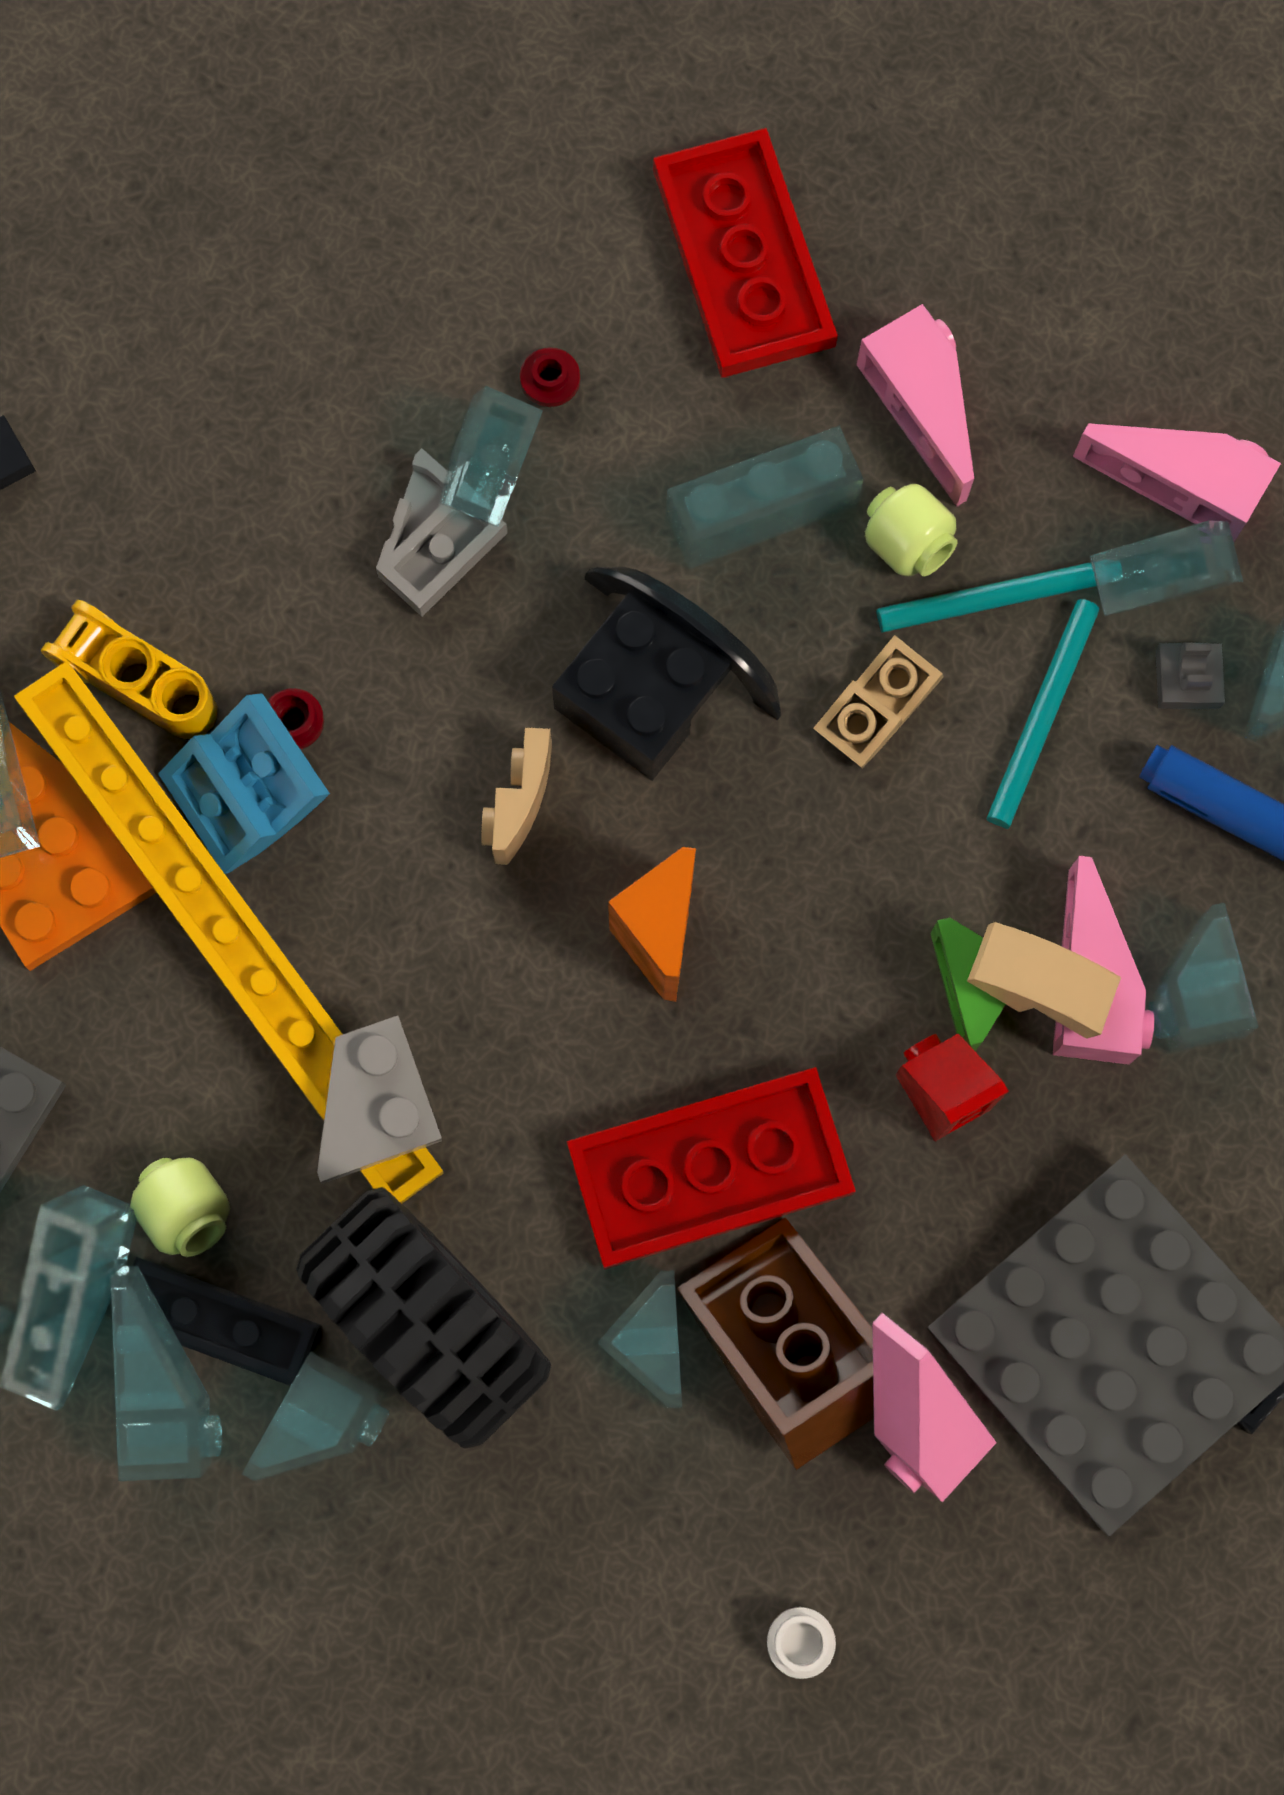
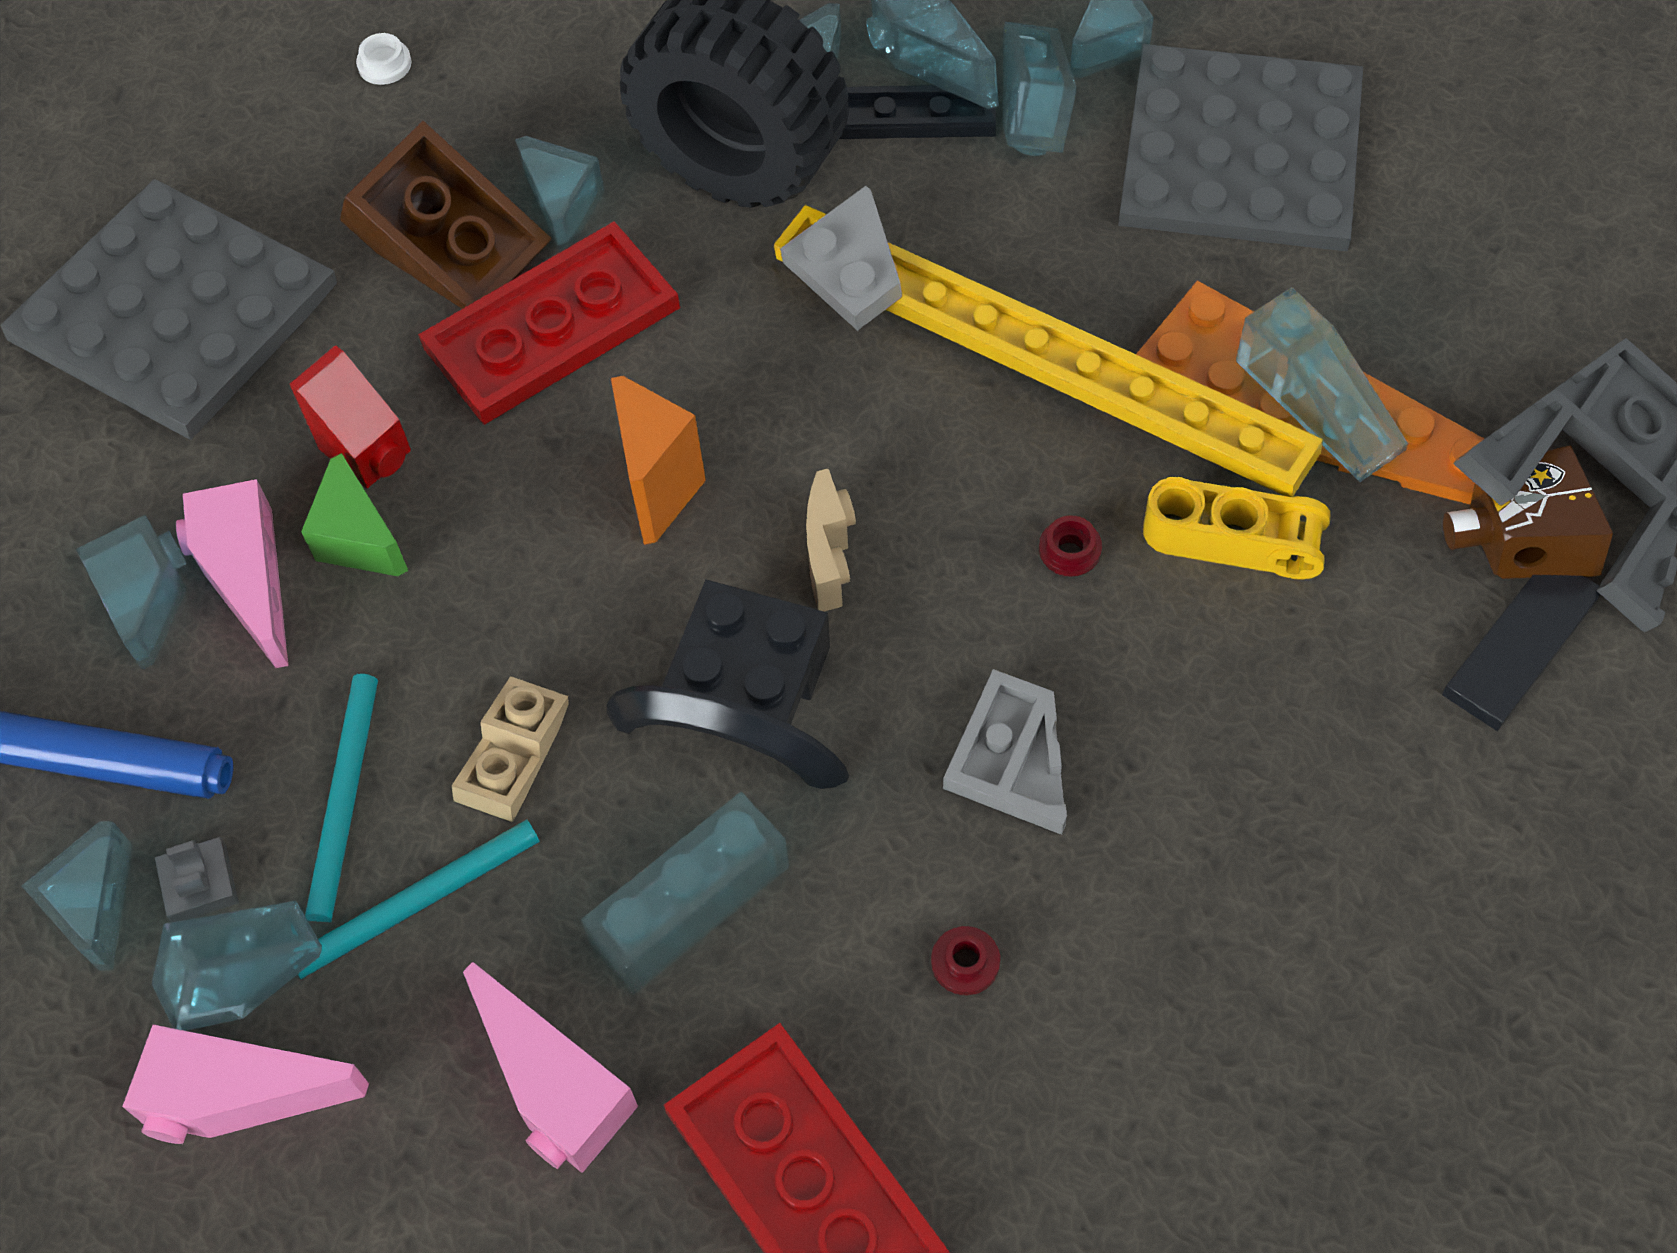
camera: 165 degrees right, 15 degrees down
(180, 1206) = (976, 159): yellowish green head -> none
(243, 783) = (1084, 473): dark azure slope -> none
(489, 455) = (988, 830): clear light blue slope -> none
(911, 530) = (521, 913): yellowish green head -> none
(922, 1415) = (310, 189): bright pink slope -> none
(1044, 976) = (280, 500): tan slope -> none

